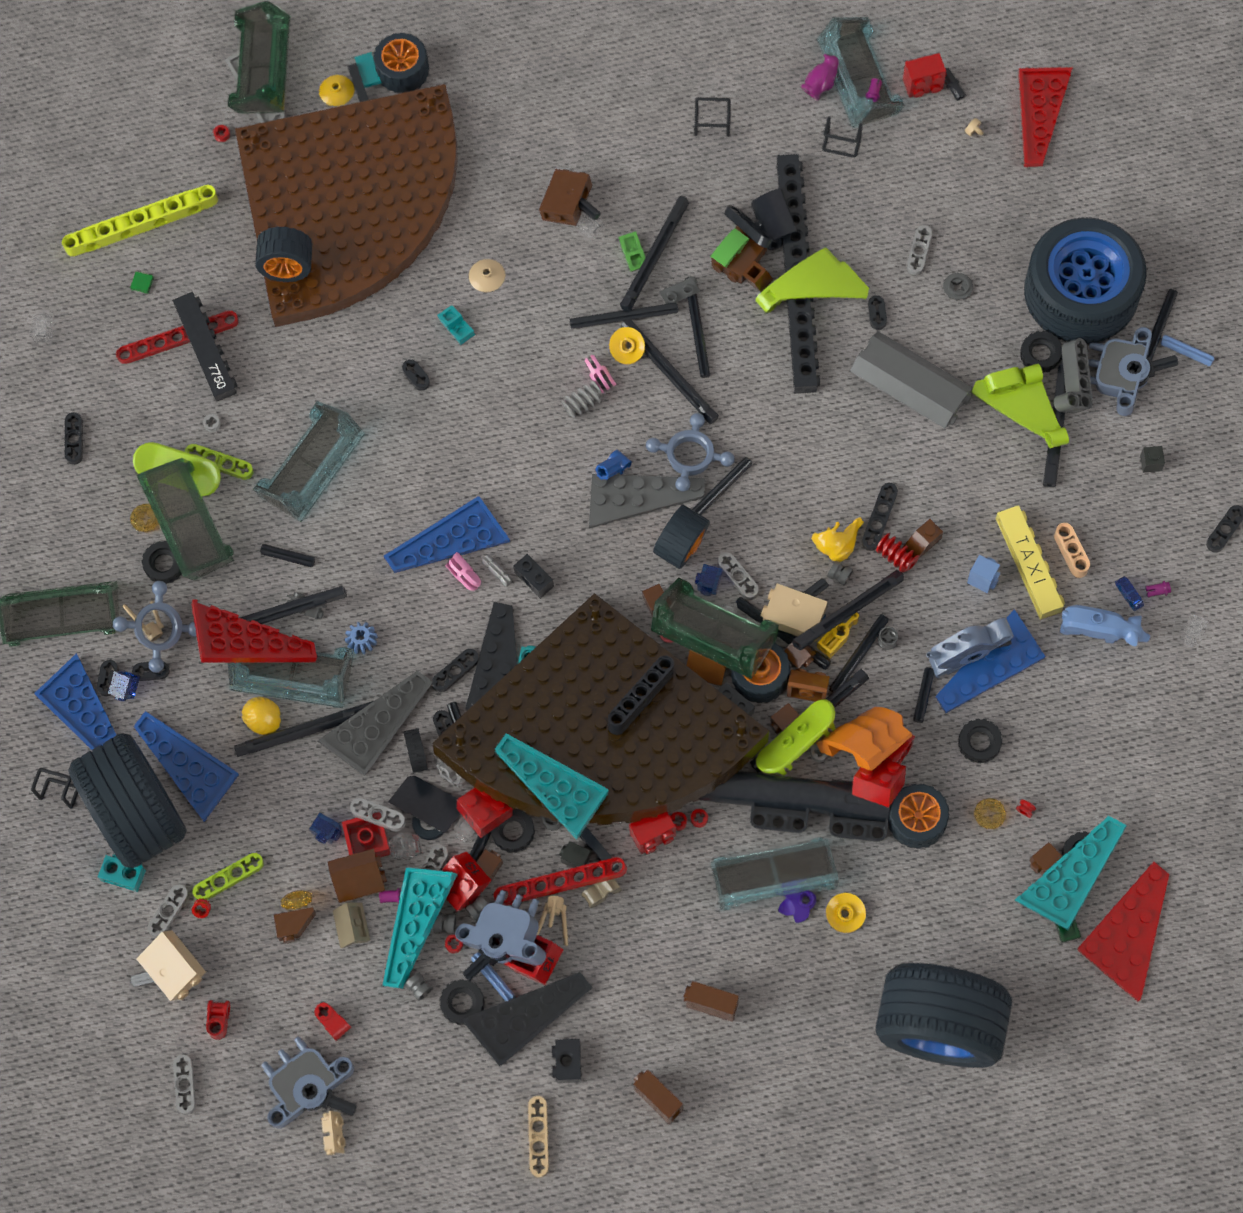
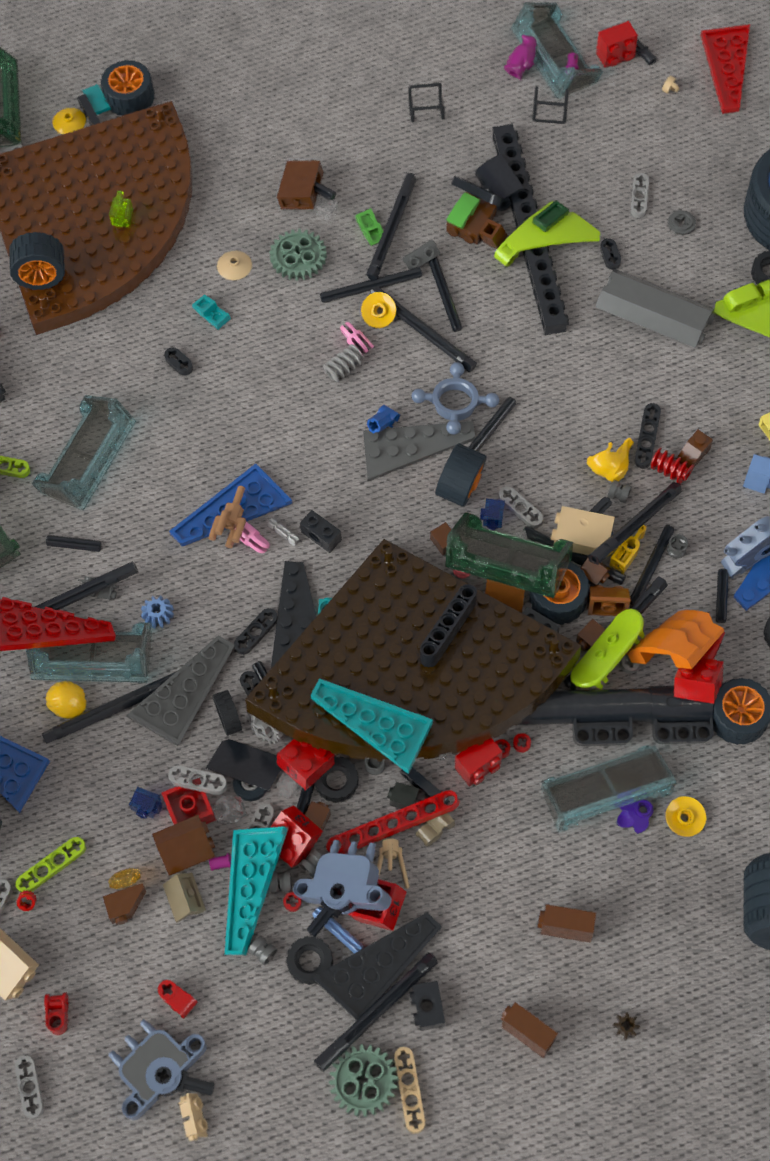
camera: 10 degrees left, 5 degrees down
(376, 206) = (120, 210): none -> clear neon green brick
(444, 552) = (230, 519): none -> medium nougat plant
(482, 1084) = (344, 1041): none -> black piece
(513, 1127) = (383, 1083): none -> sand green gear
(554, 287) = (294, 251): none -> sand green gear
(757, 1103) = (621, 1029): none -> dark brown gear
(819, 265) = (550, 216): none -> dark green tile

